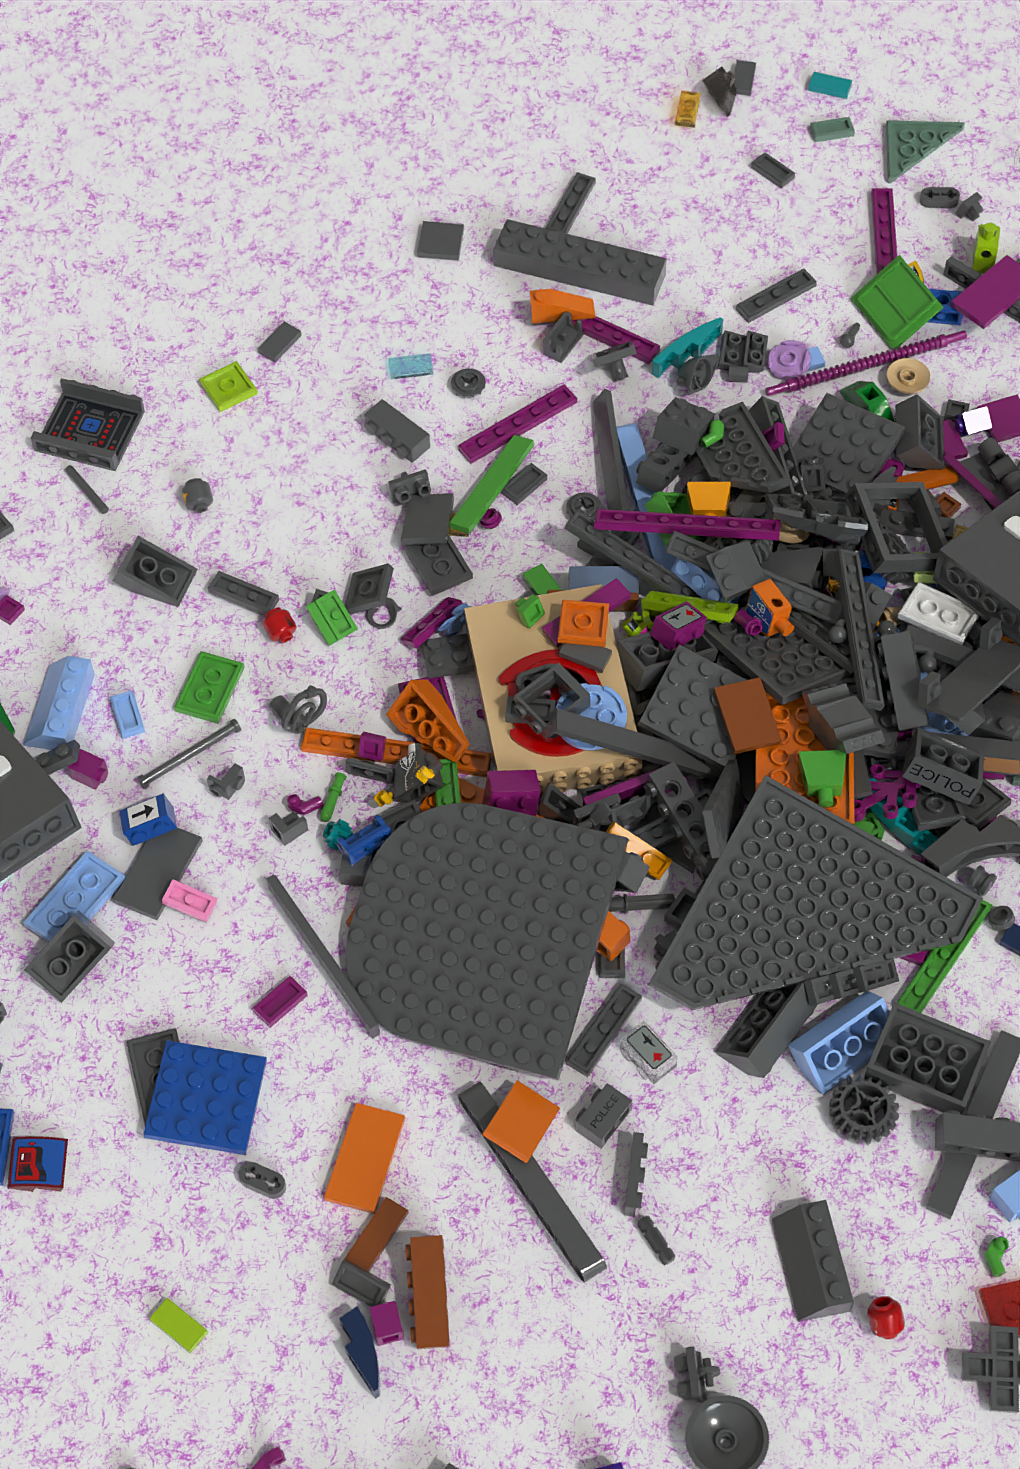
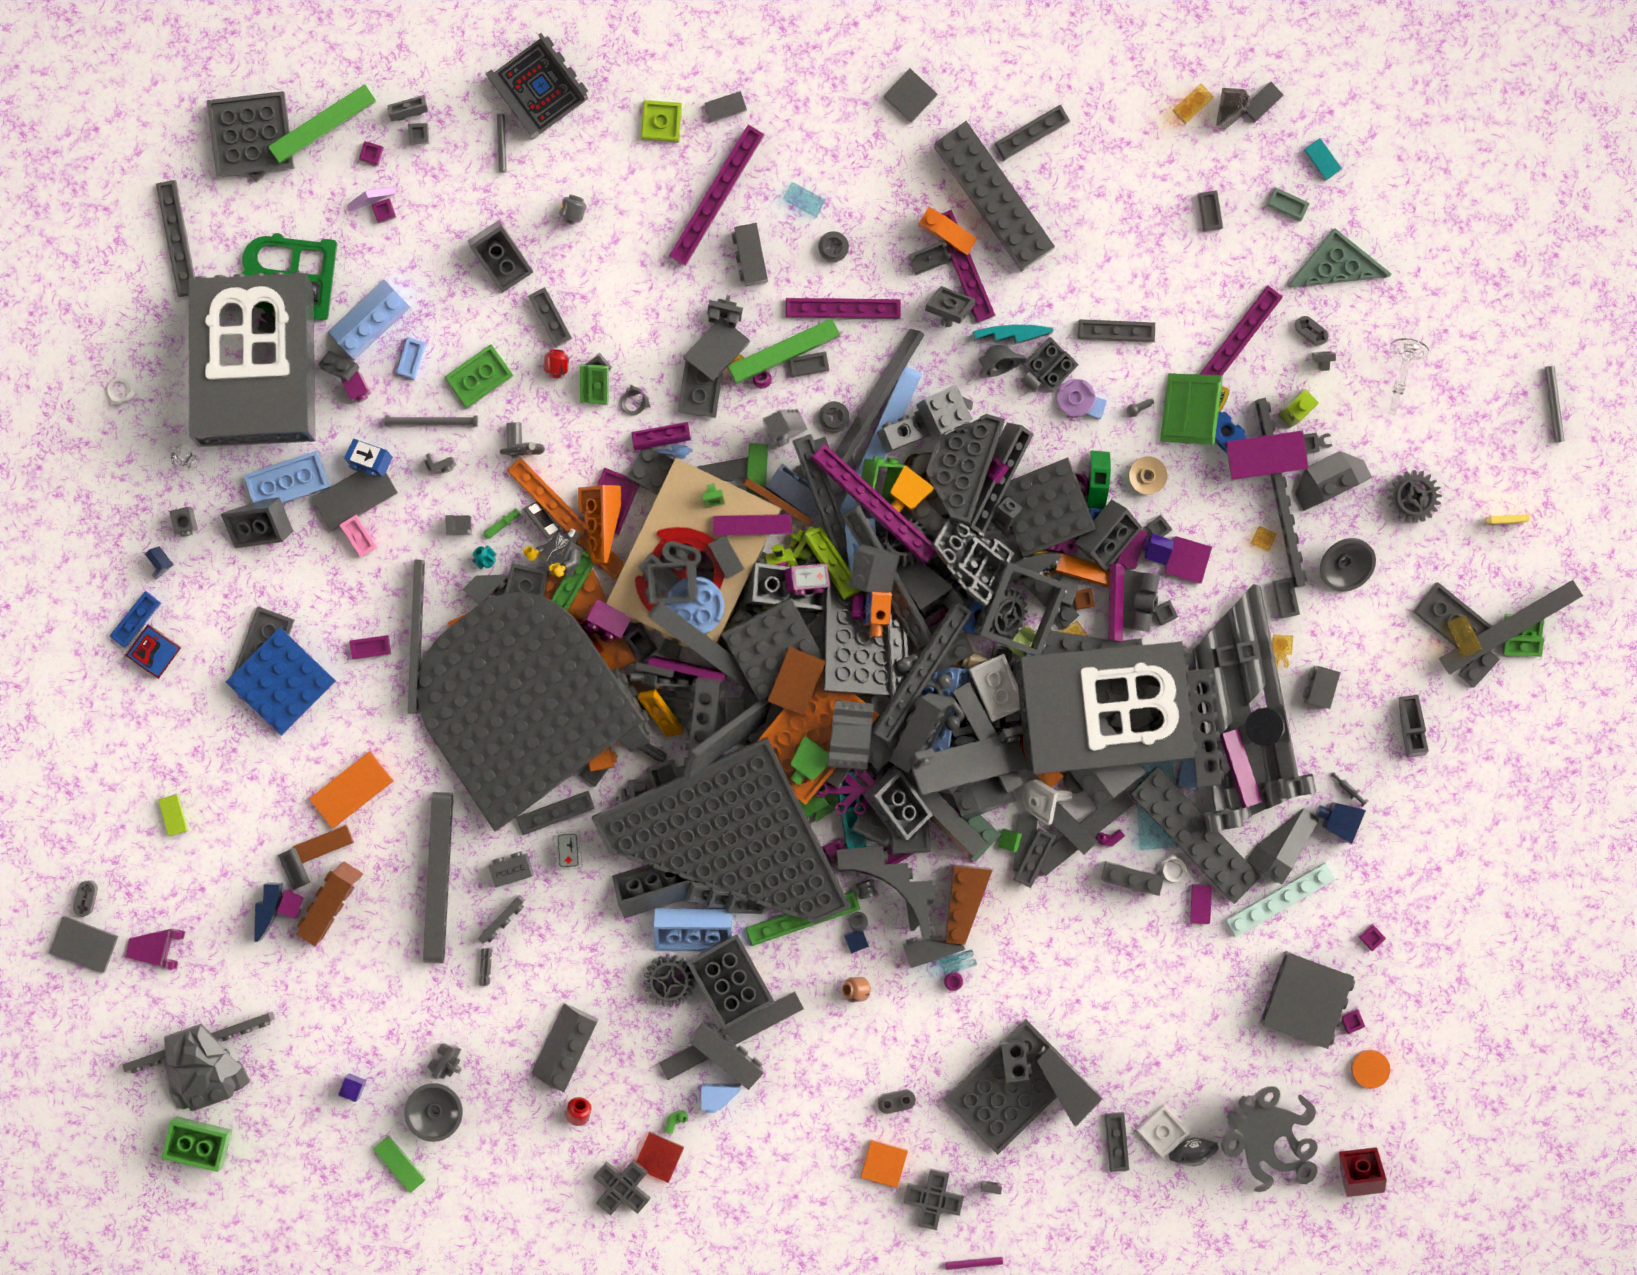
camera: 35 degrees right, 30 degrees up
(264, 1174) = (276, 762): dark grey beam -> none
(304, 807) = (478, 517): magenta arm -> none
(326, 409) = (716, 195): none -> magenta plate
(365, 841) = (492, 579): blue hinge -> none
(369, 588) = (635, 379): dark grey plate -> none
(372, 746) = (549, 508): magenta tile -> none
(521, 1121) = (456, 840): orange tile -> none
(543, 529) = (783, 426): none -> dark grey wedge
(583, 623) = (740, 535): orange tile -> none
(715, 433) = (960, 436): bright green arm -> none
(940, 341) = (1199, 460): magenta hose -> none

